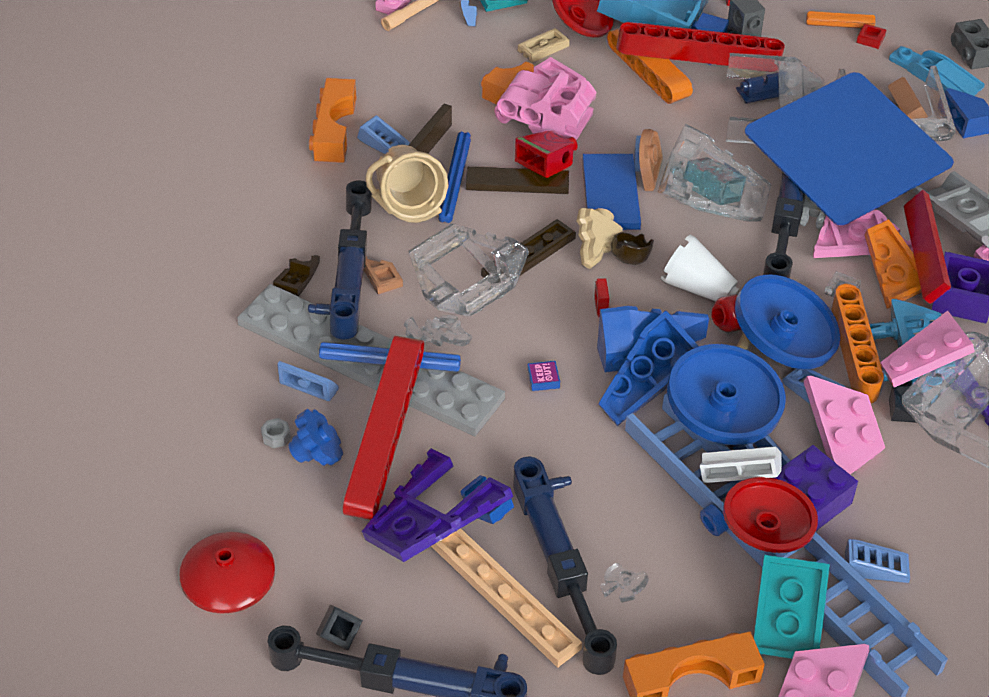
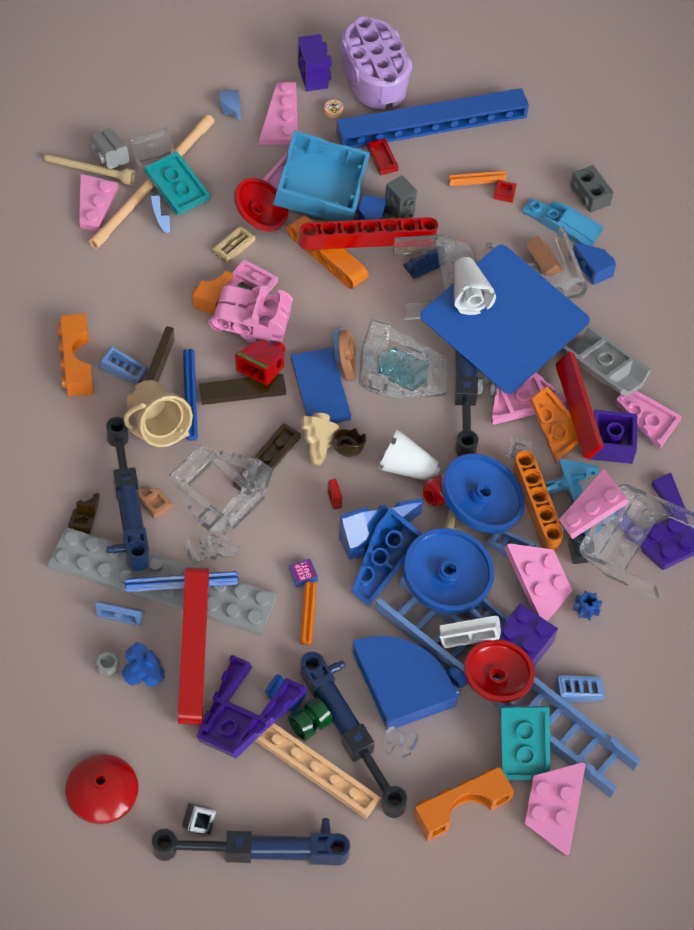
camera: 15 degrees left, 10 degrees up
(511, 534) = (311, 718): none -> dark green wheel
(538, 420) = (308, 610): none -> orange axle
(644, 512) = (403, 679): none -> blue brick
(812, 106) = (471, 288): none -> white cone
(902, 466) = (587, 605): none -> blue gear

